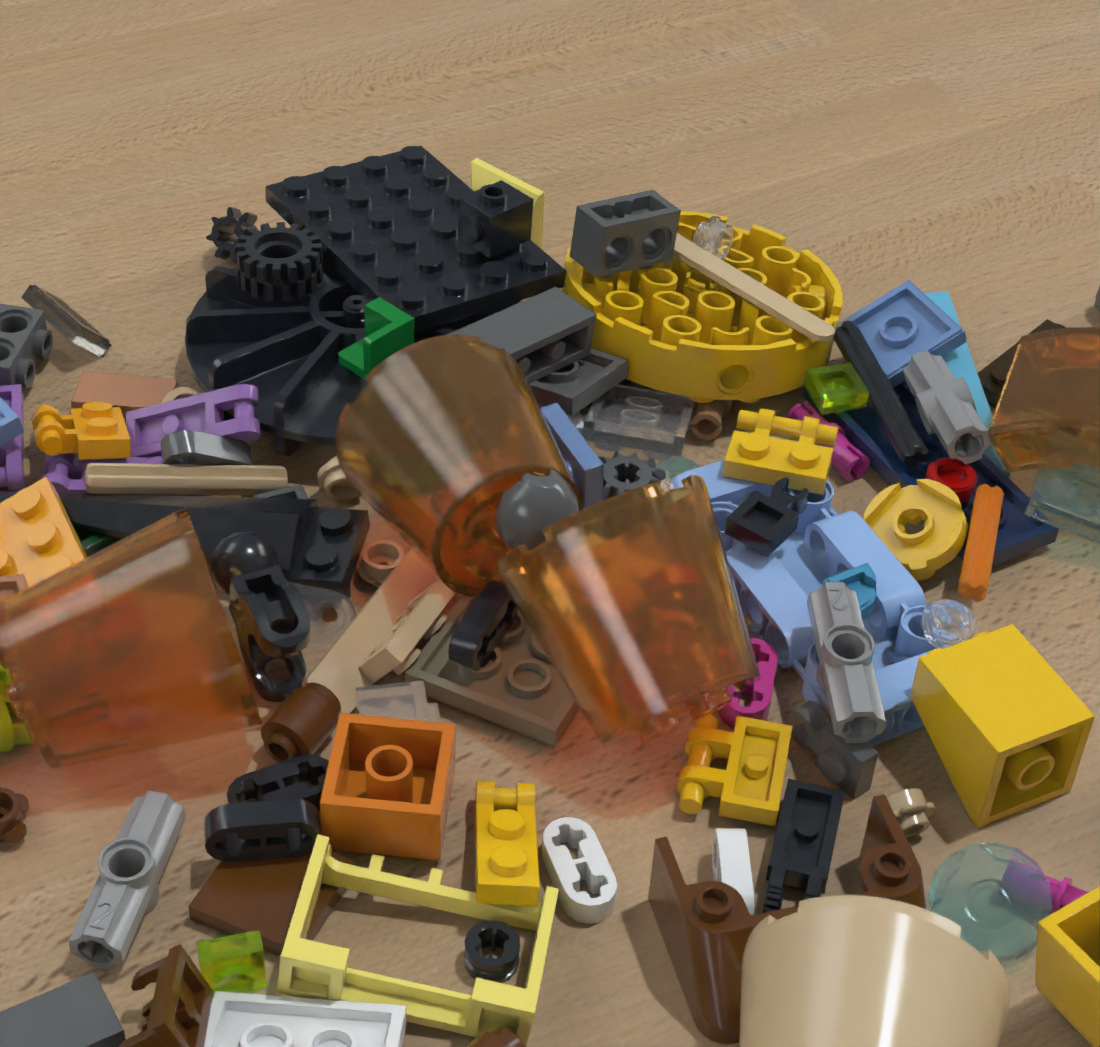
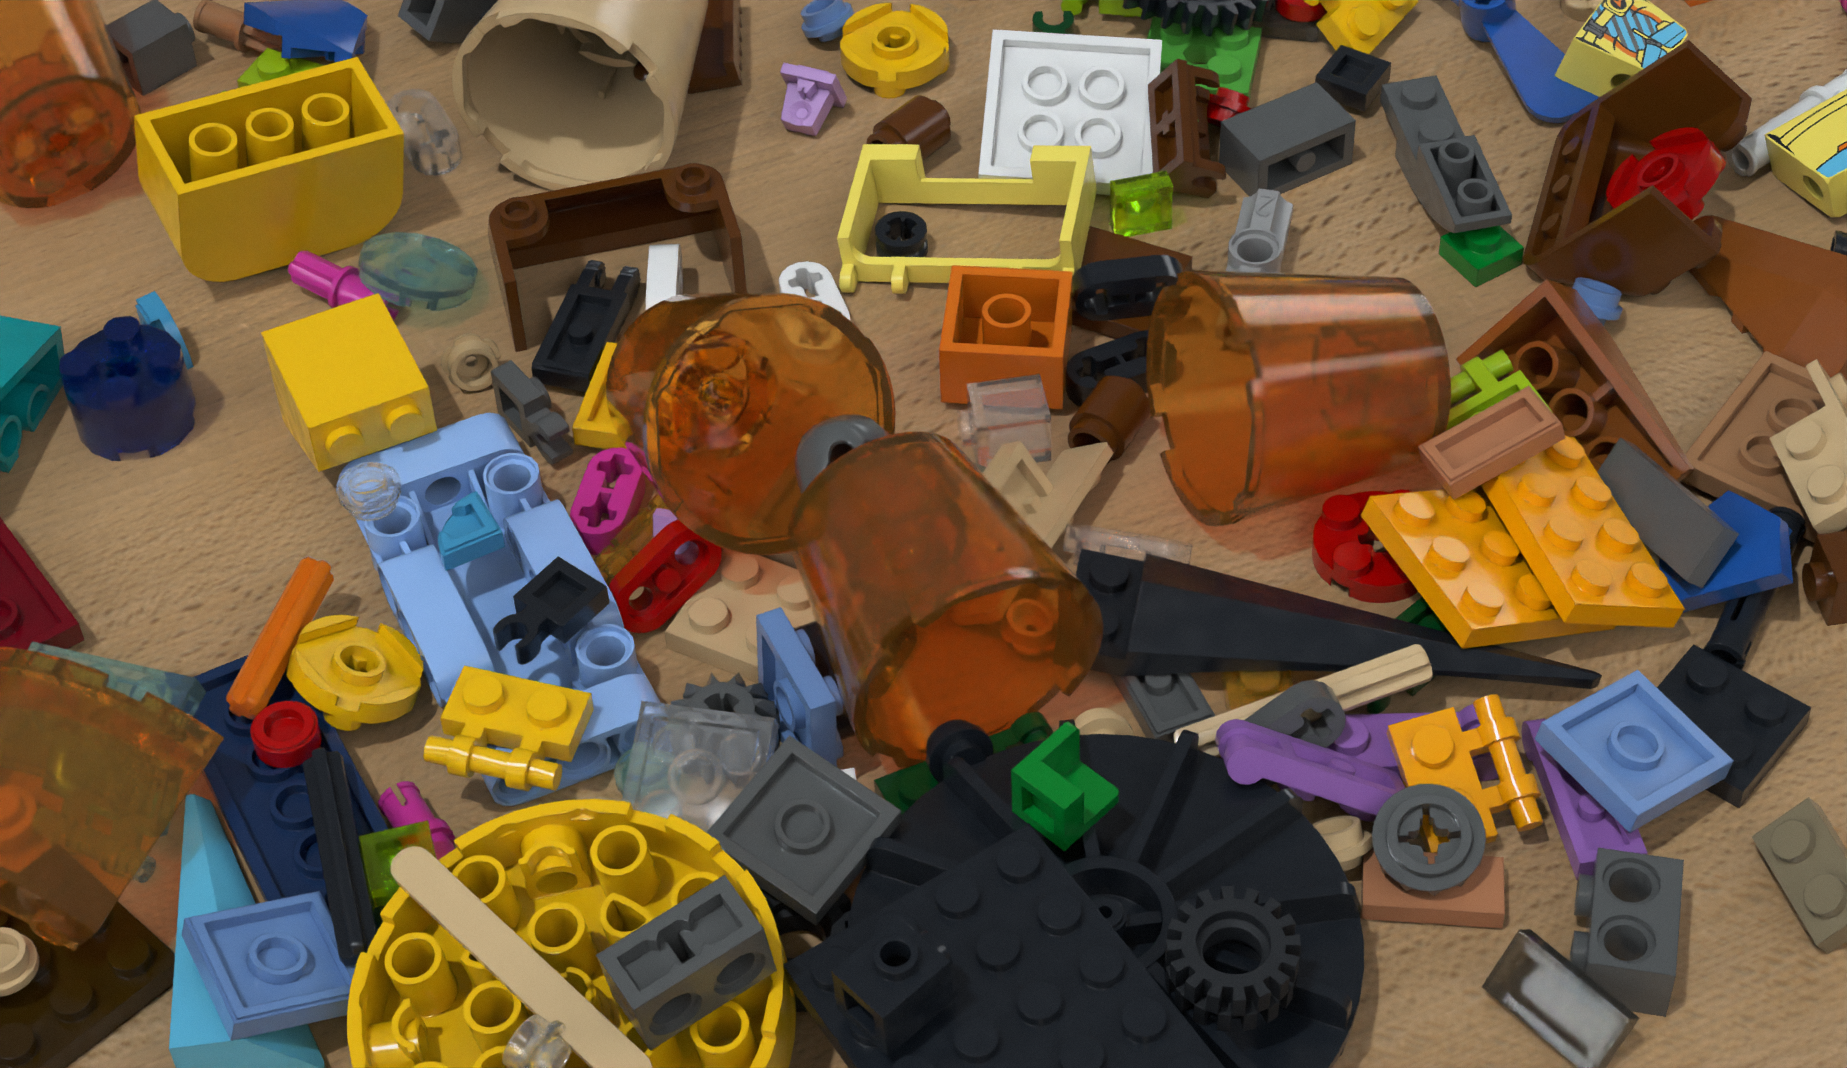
camera: 175 degrees left, 5 degrees up
(123, 384) = (1450, 816): none -> dark grey gear
(265, 610) = (1165, 477): black piece -> none
(506, 845) = (889, 299): yellow plate -> none
(539, 332) = (858, 790): dark grey brick -> none
(845, 663) = (505, 422): light grey piece -> none
(946, 407) = (257, 806): light grey piece -> none

